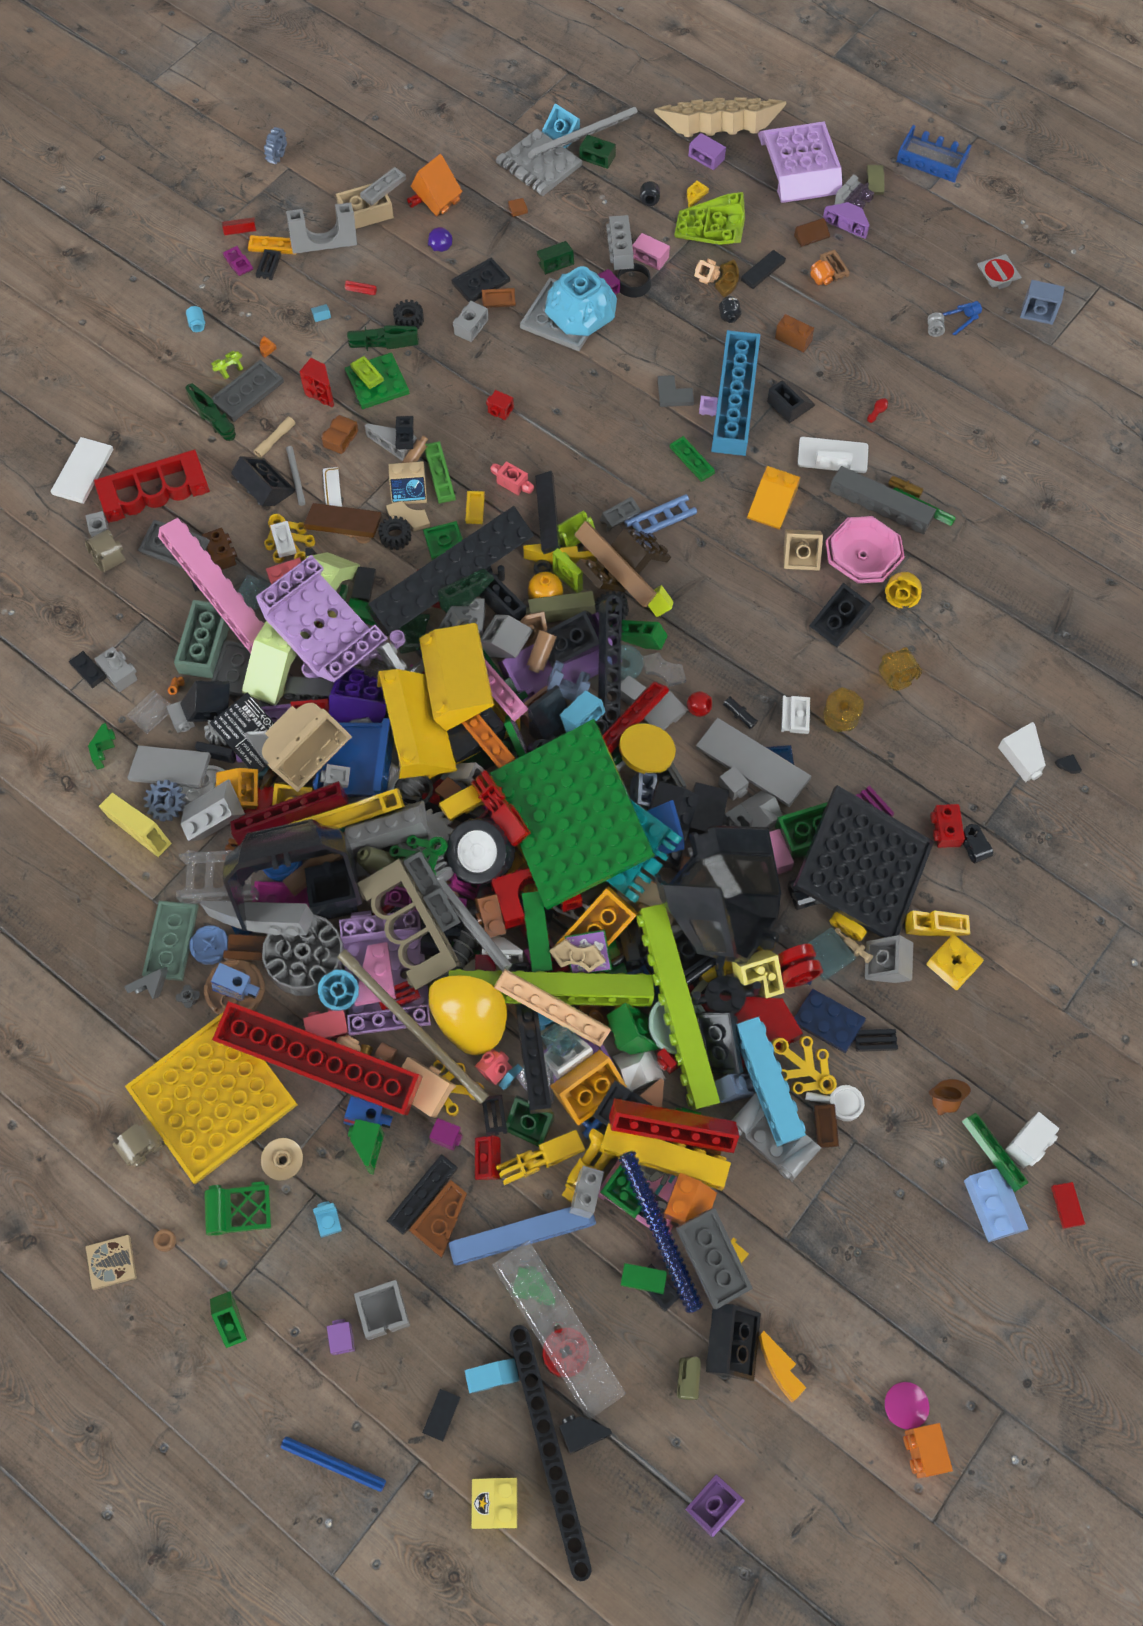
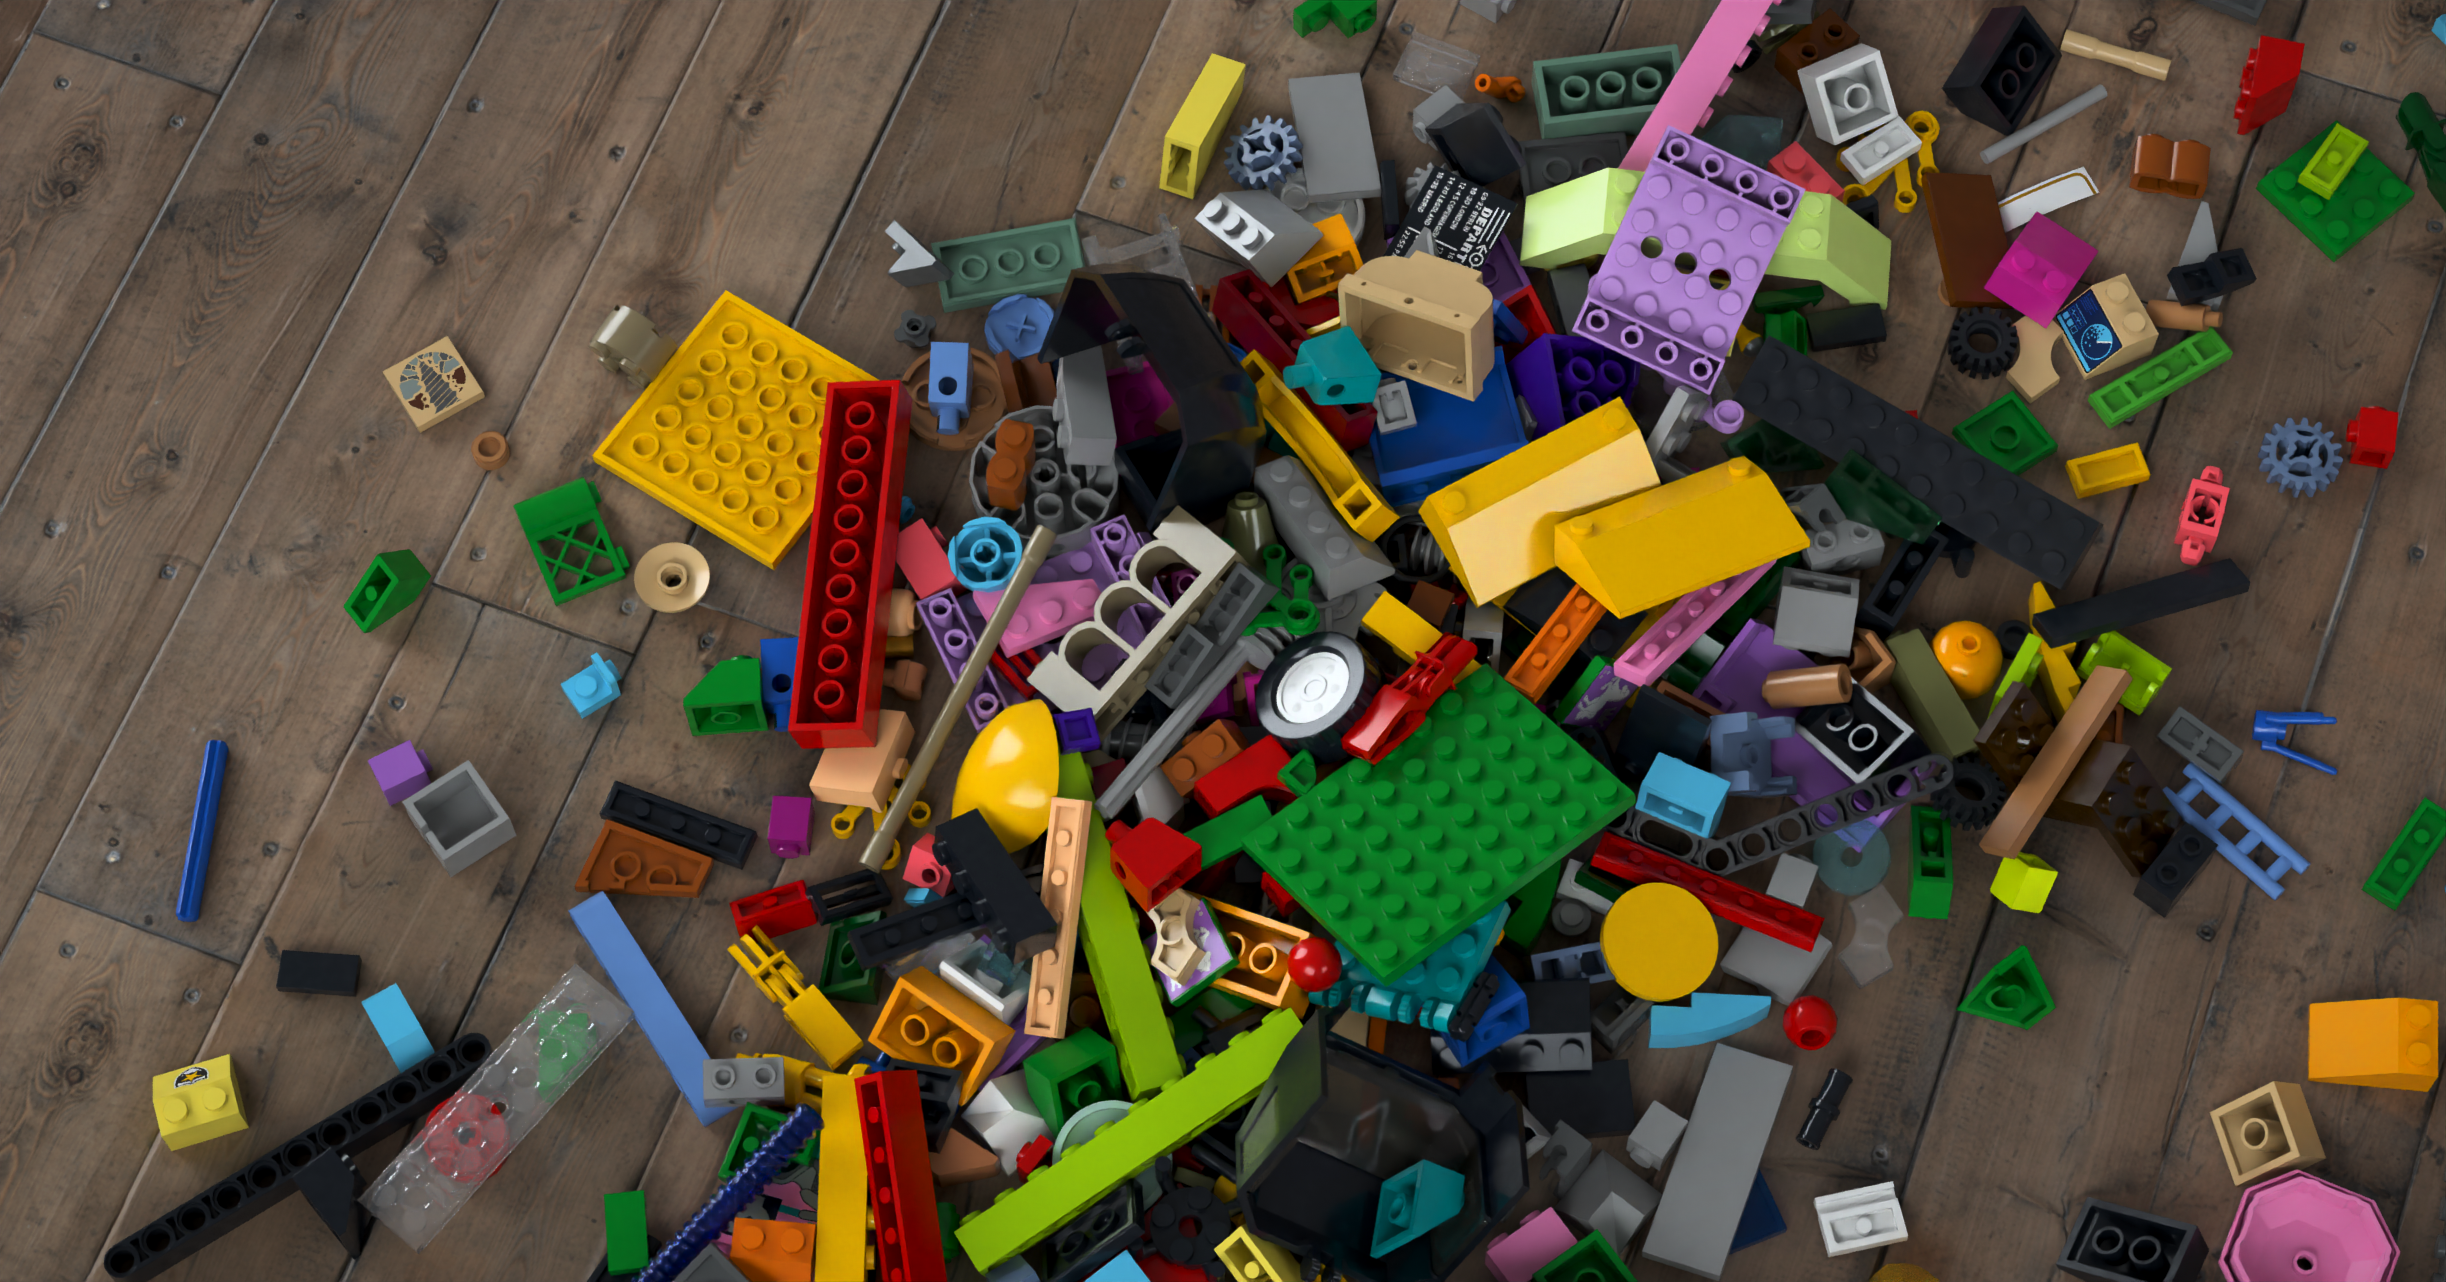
camera: 75 degrees right, 0 degrees up
(250, 540) = (1848, 94): none -> white brick
(296, 962) = (1011, 464): none -> dark orange brick
(311, 790) = (1334, 369): none -> teal torso
(371, 497) = (2041, 269): none -> dark pink slope
(459, 966) = (1076, 731): none -> dark purple tile
(499, 434) = (2301, 471): none -> sand blue gear
(518, 871) = (1299, 773): none -> green tile
(528, 1032) = (994, 887): none -> black brick
(540, 953) = (1152, 860): none -> red torso
(619, 486) = (2270, 726): none -> blue plant
(624, 890) = (1314, 964): none -> red piece
(672, 823) = (1473, 1006): none -> black axle
(675, 541) = (2175, 869): none -> black brick
(684, 746) = (1705, 1020): none -> medium azure slope
(709, 622) = (2011, 992): none -> green slope
(748, 891) = (1415, 1204): none -> teal slope

